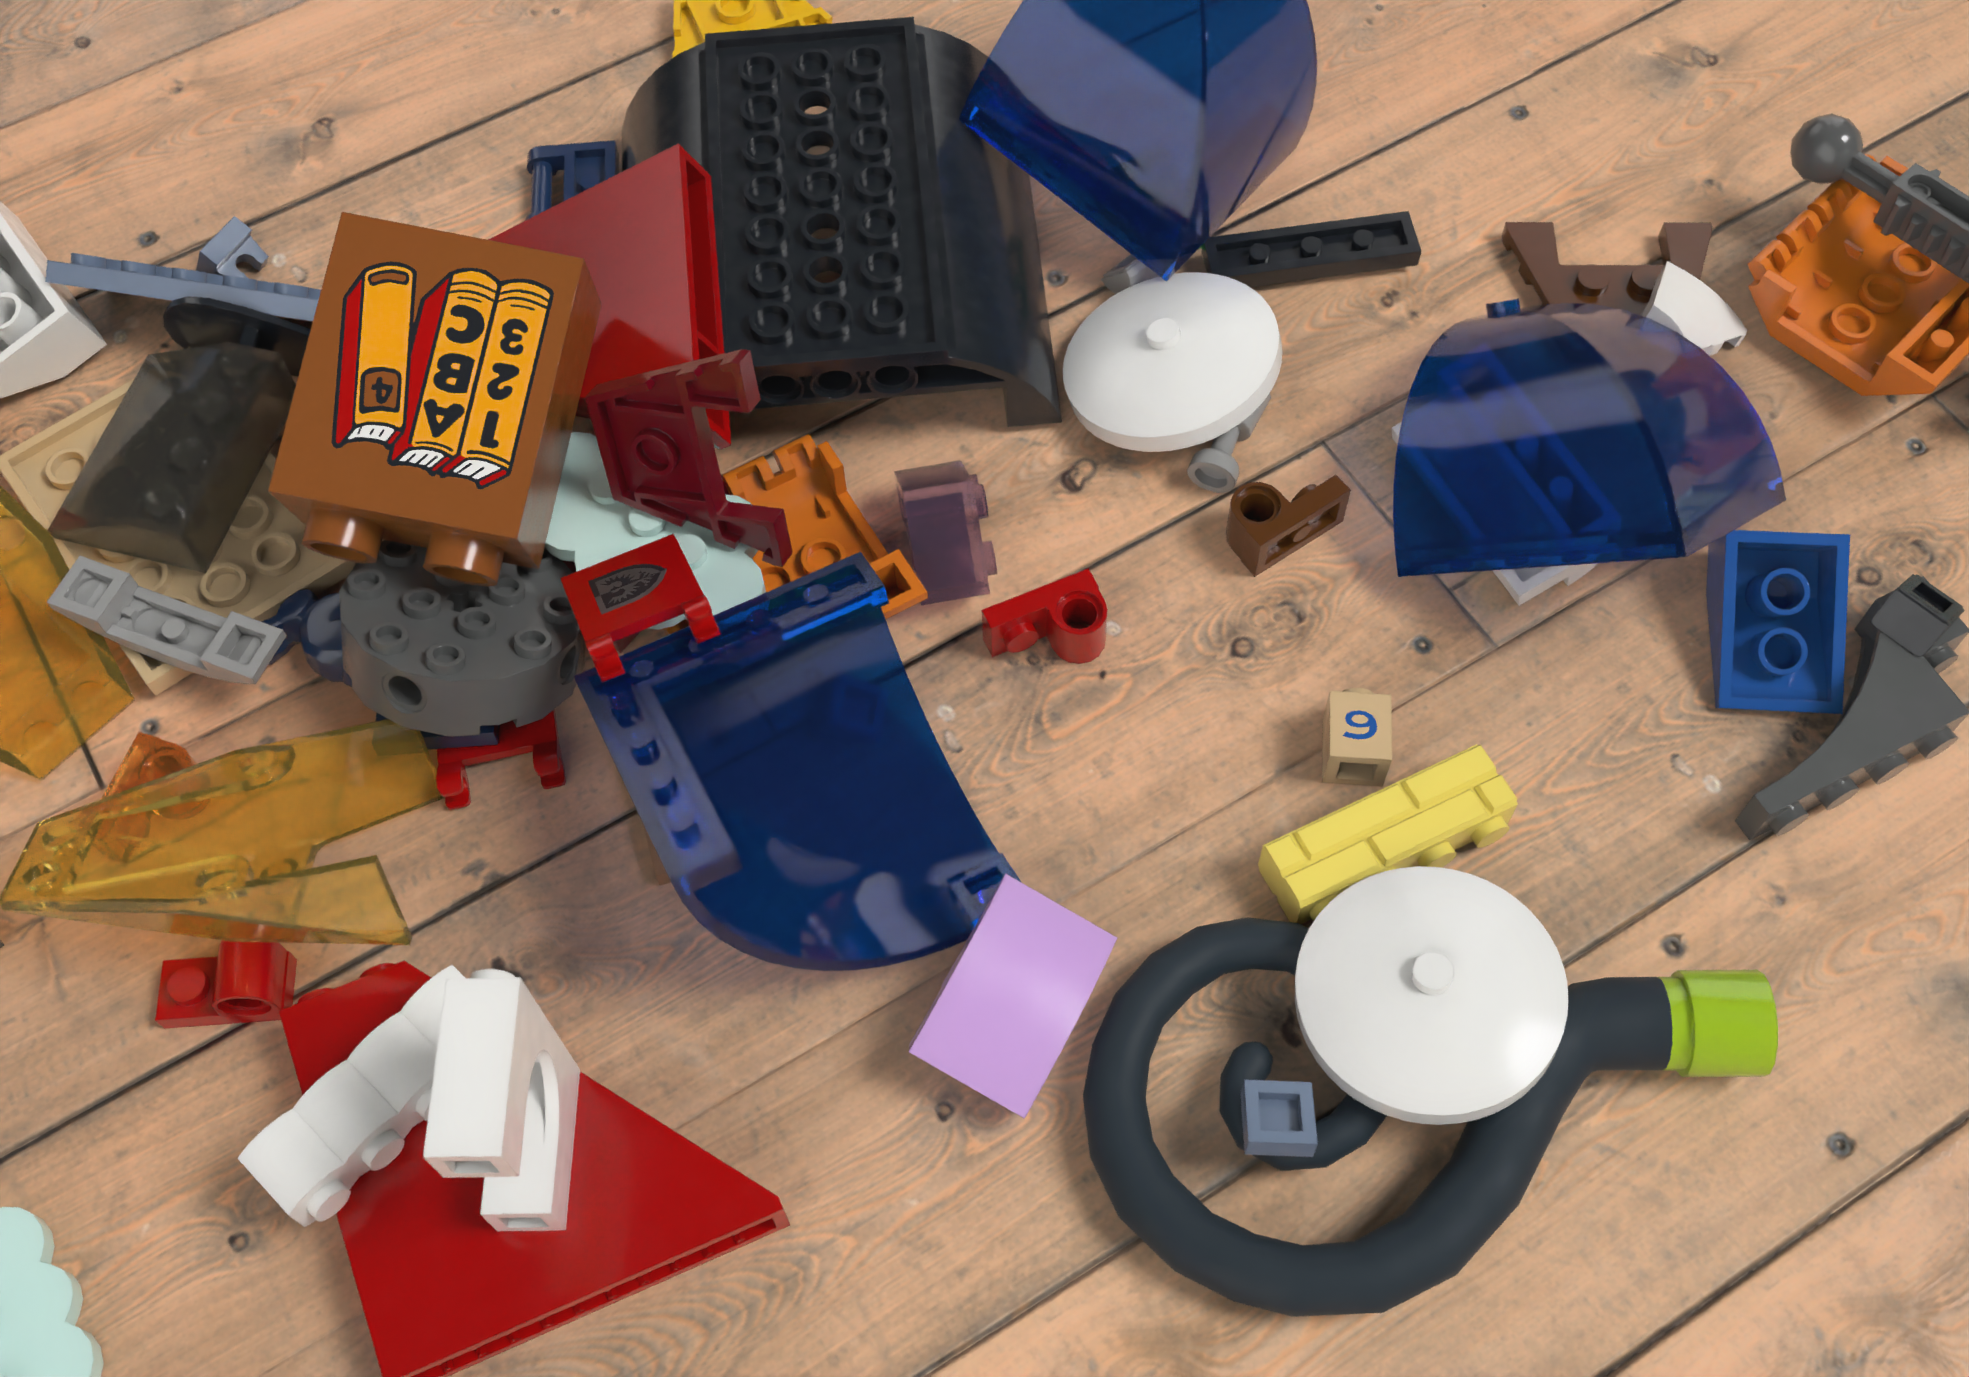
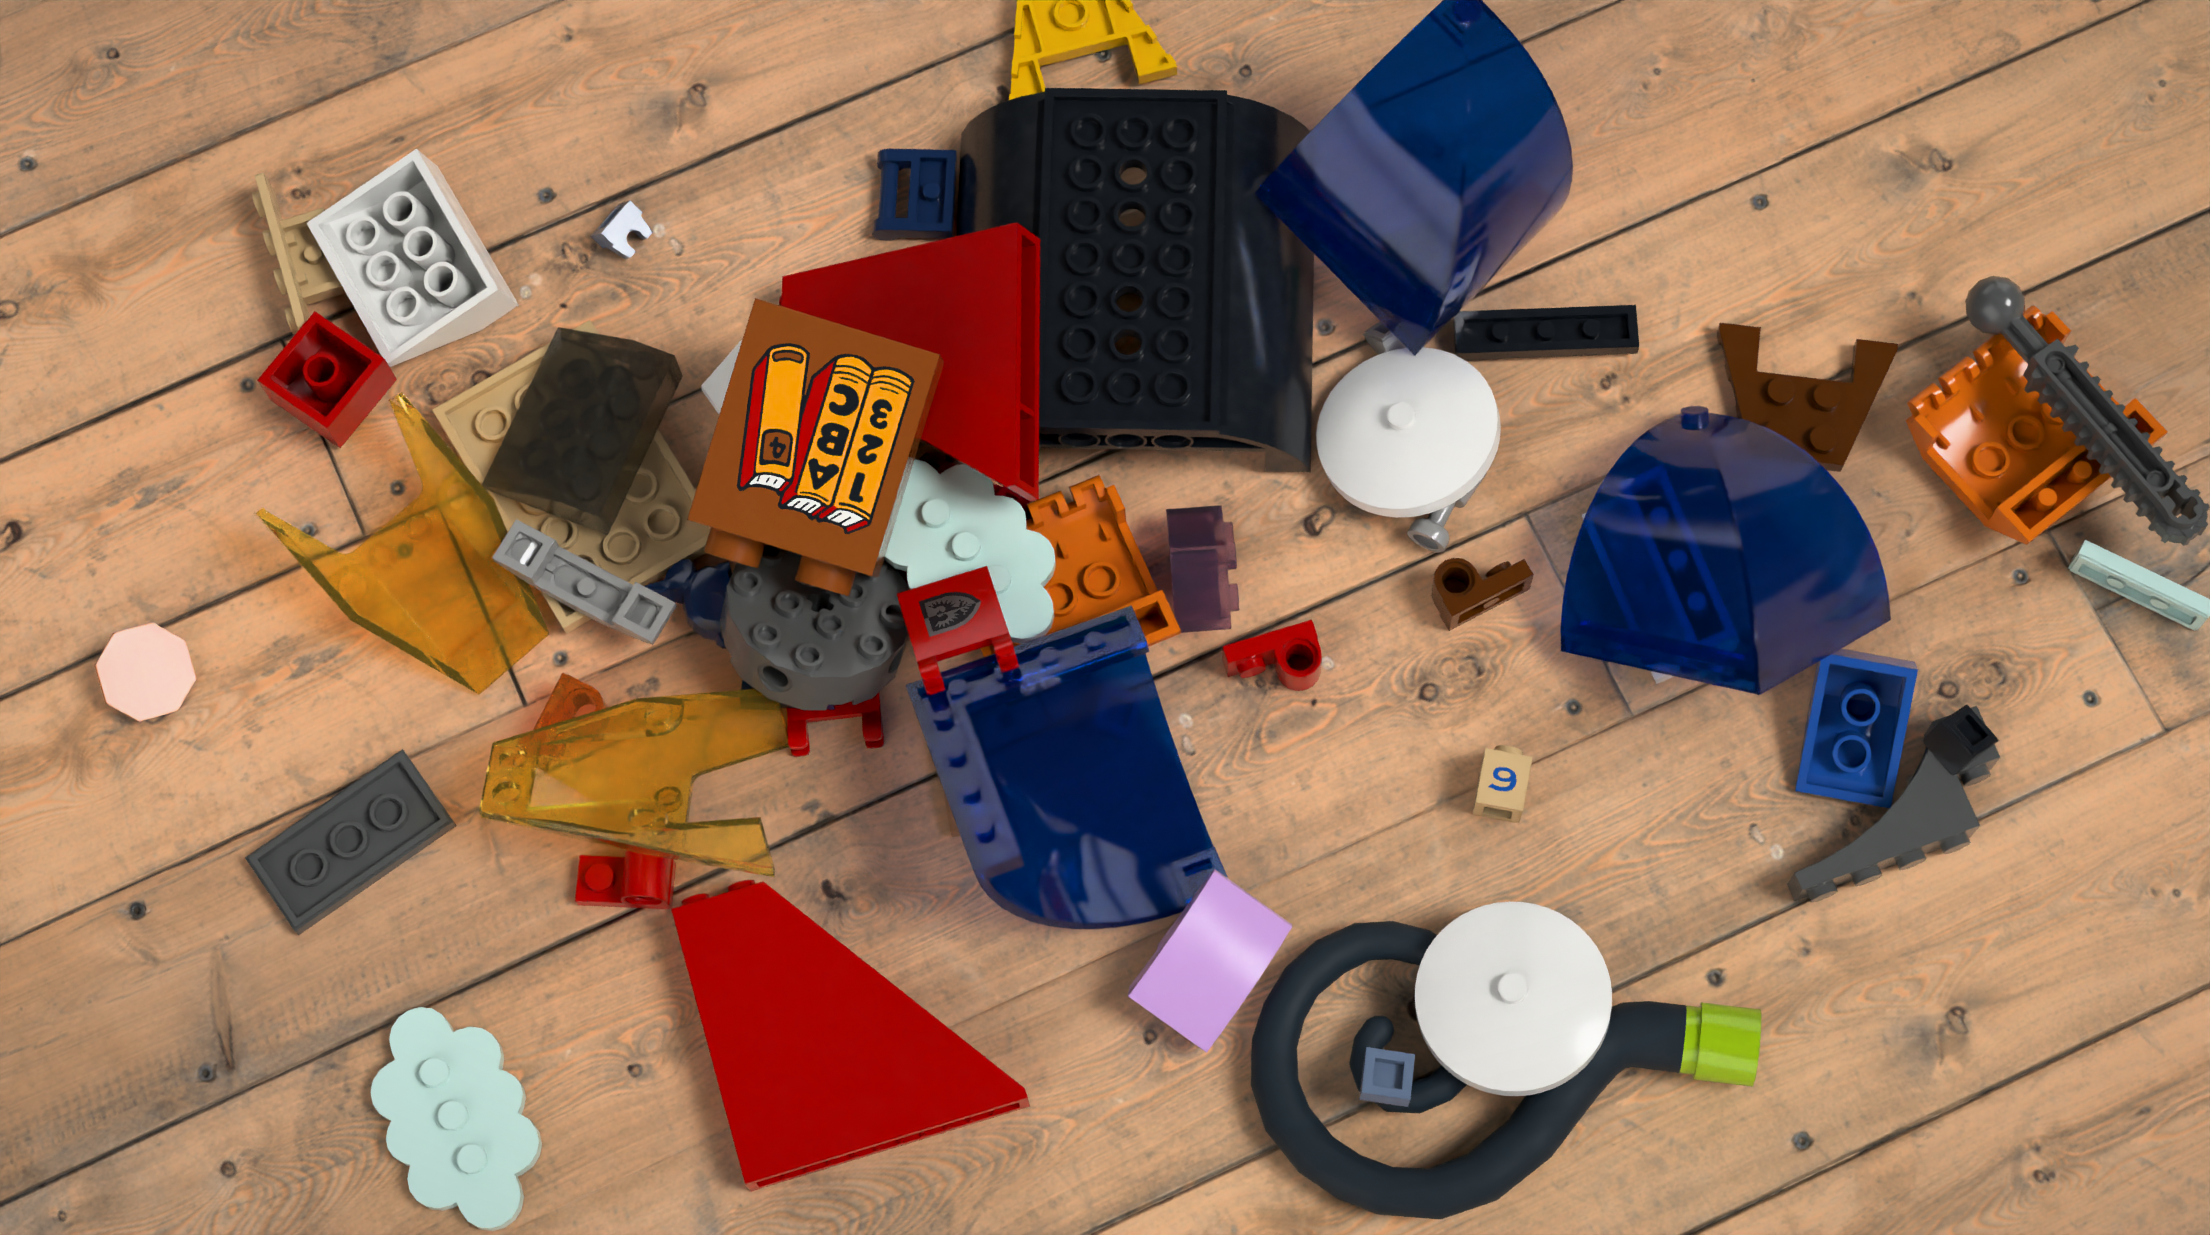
camera: 10 degrees right, 10 degrees up
(177, 283) = (614, 277): sand blue plate -> none
(210, 321) = (647, 325): black shield -> none
(353, 1113) = (747, 983): white brick -> none
(503, 1102) = (847, 1010): white arch -> none
(663, 451) = (986, 508): dark red wing -> none
(1394, 828) = (1513, 867): light yellow brick -> none
(1693, 310) = (1851, 440): white slope -> none

